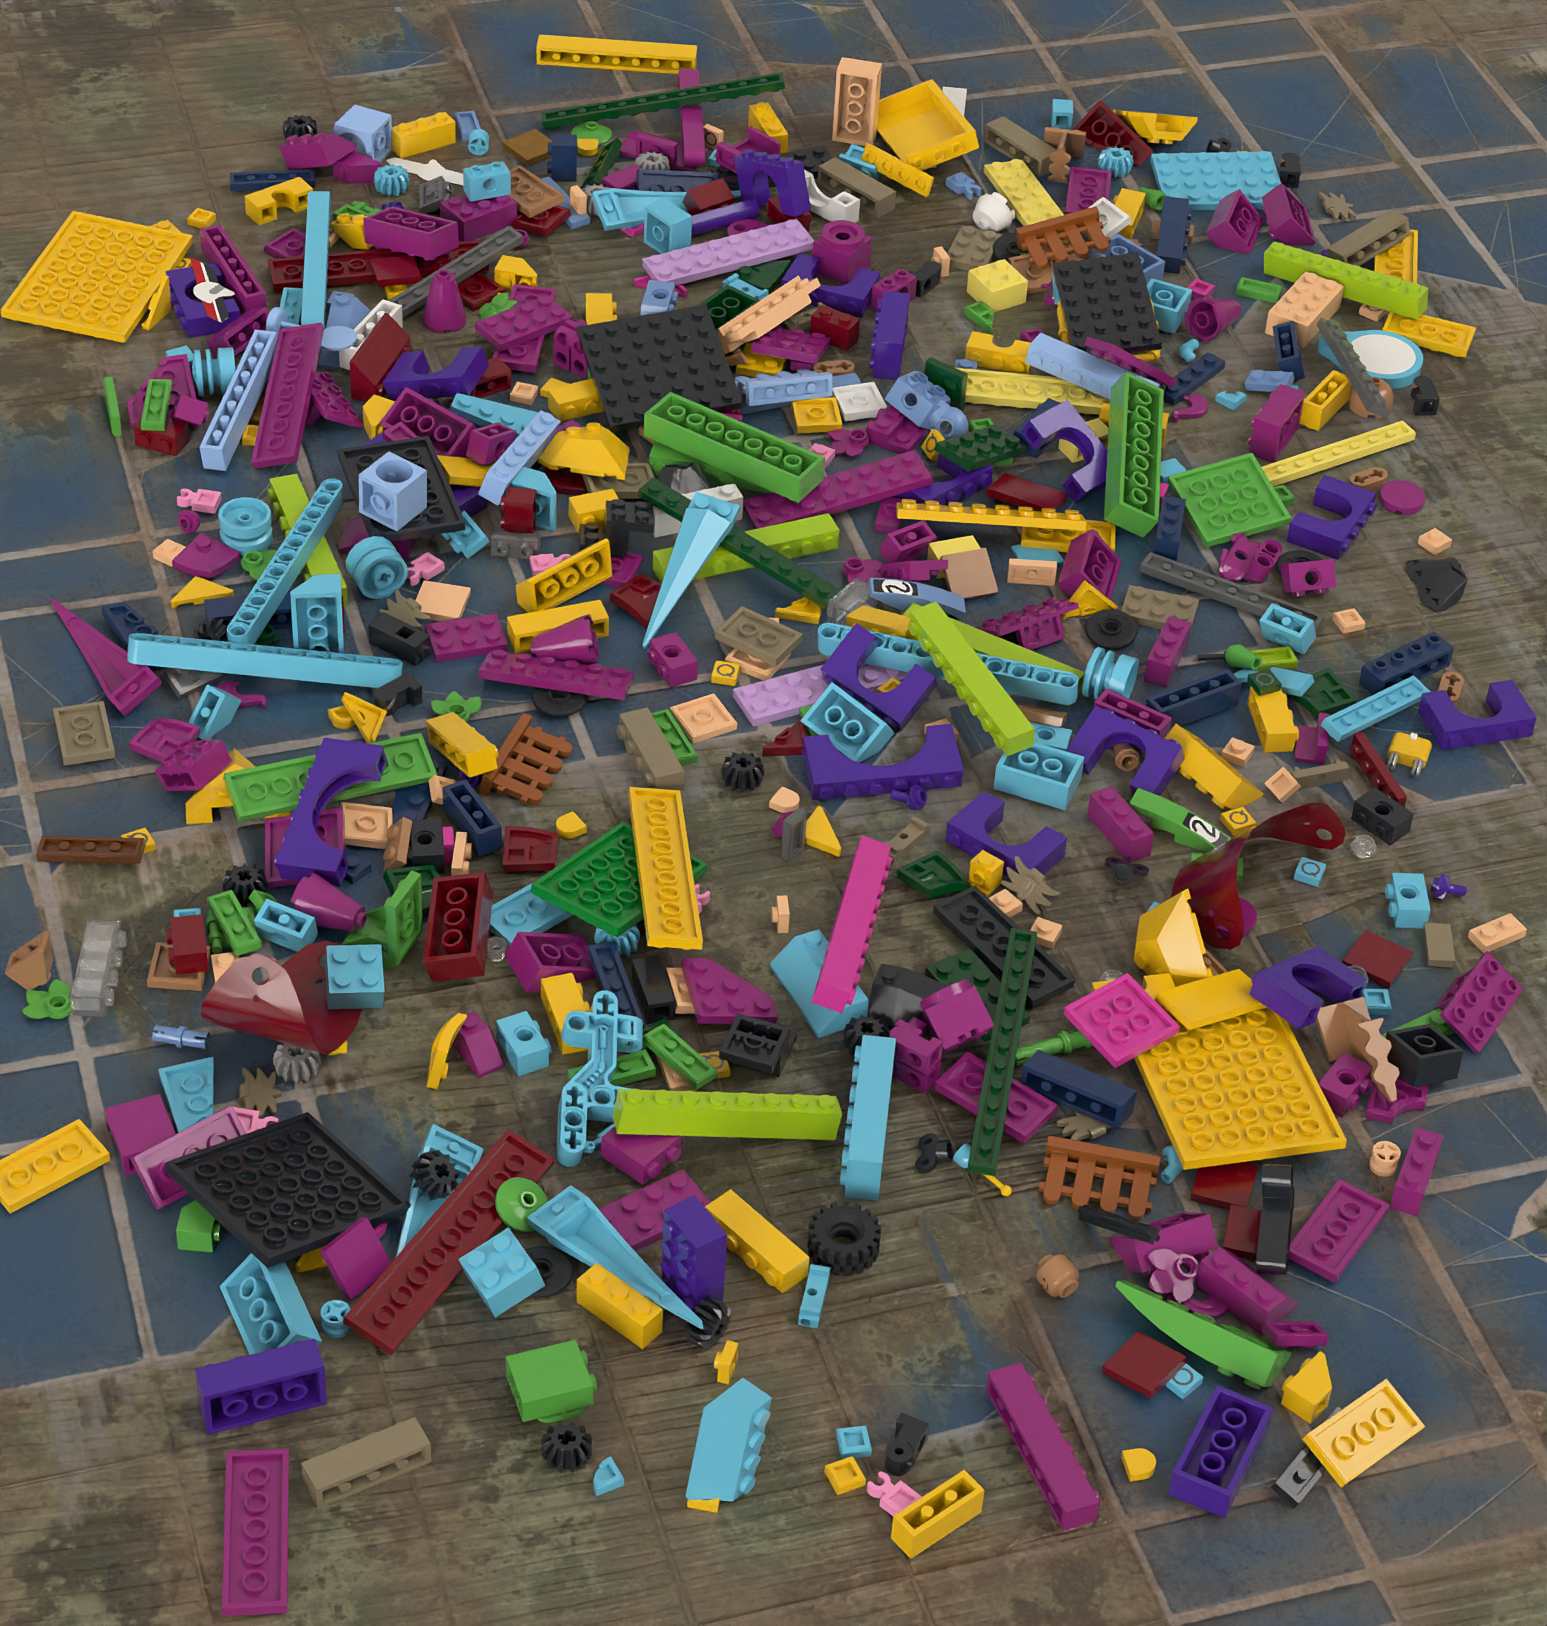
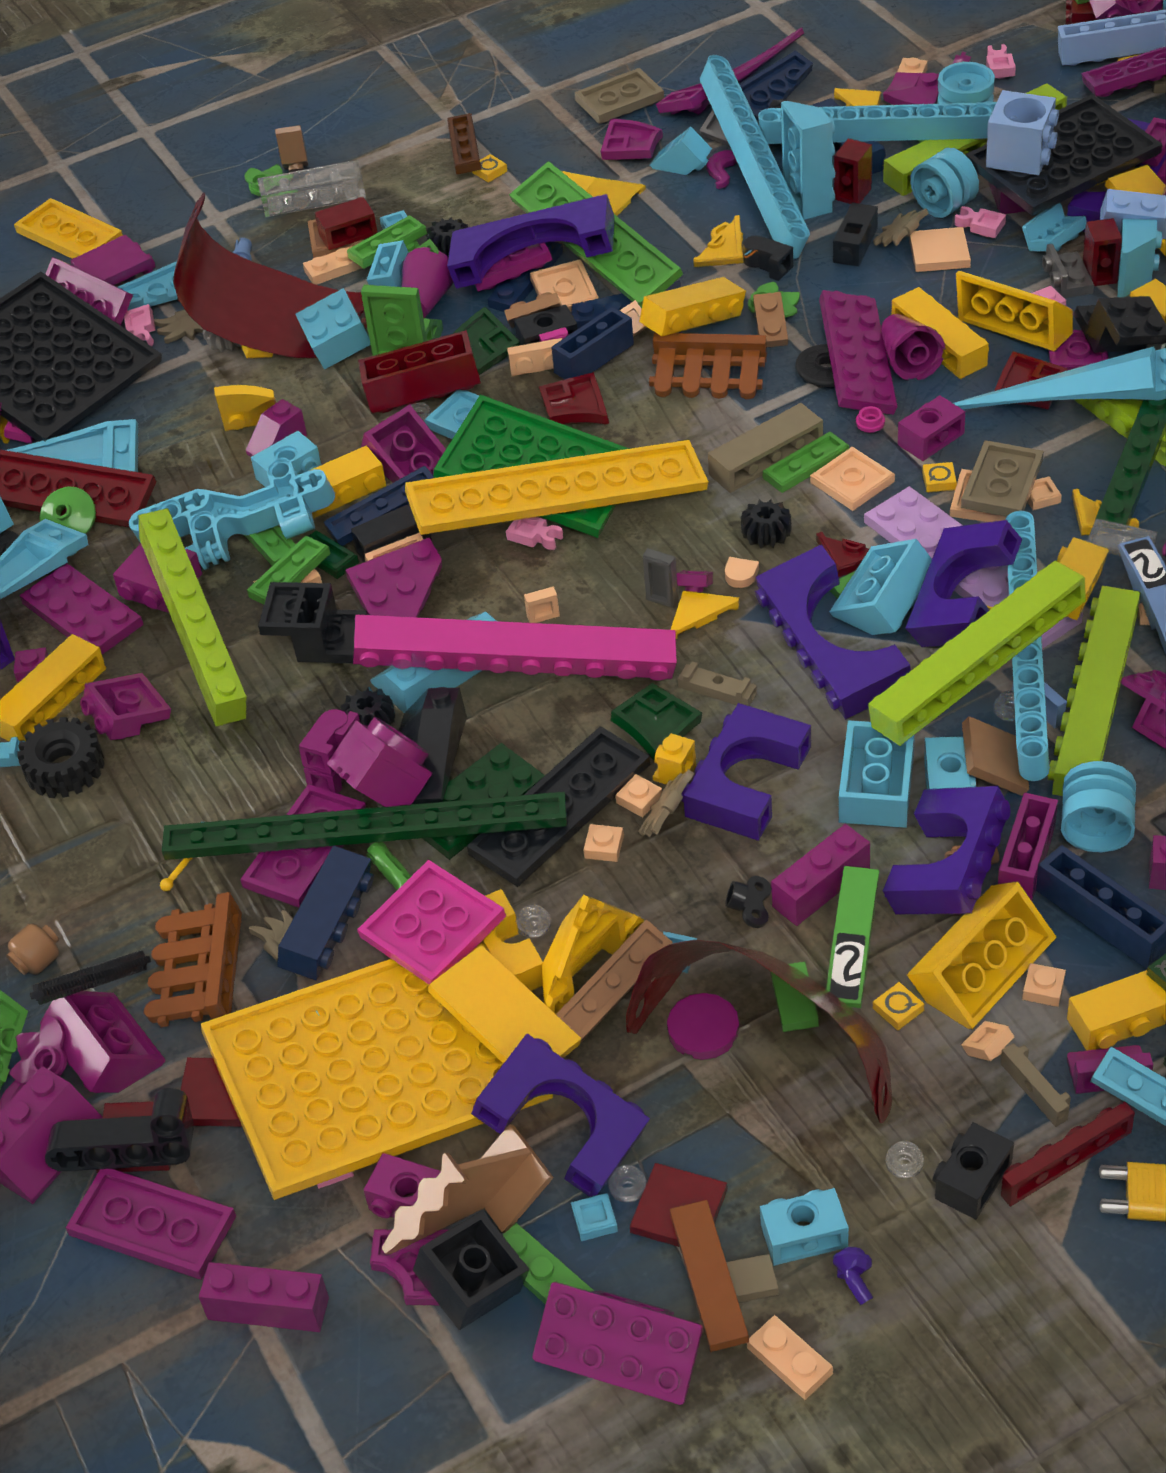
camera: 85 degrees right, 5 degrees up
(193, 765) = (590, 159): magenta brick -> none
(434, 1175) = (64, 431): black gear -> none
(466, 637) = (889, 275): magenta plate -> none
(488, 712) = (771, 318): none -> medium nougat plate
(570, 826) = (627, 422): yellow tile -> none
(642, 690) = (870, 419): none -> dark pink plate
(798, 1189) = (123, 705): none -> magenta plate
(867, 1118) = (220, 732): medium azure brick -> none
(915, 798) = (793, 676): dark purple plate -> none
(937, 1151) = (209, 809): black piece -> none
(1310, 871) = (828, 1103): medium azure tile -> none
(1384, 1158) = (287, 1249): light nougat wheel -> none
(1436, 948) = (709, 1276): none -> dark orange tile

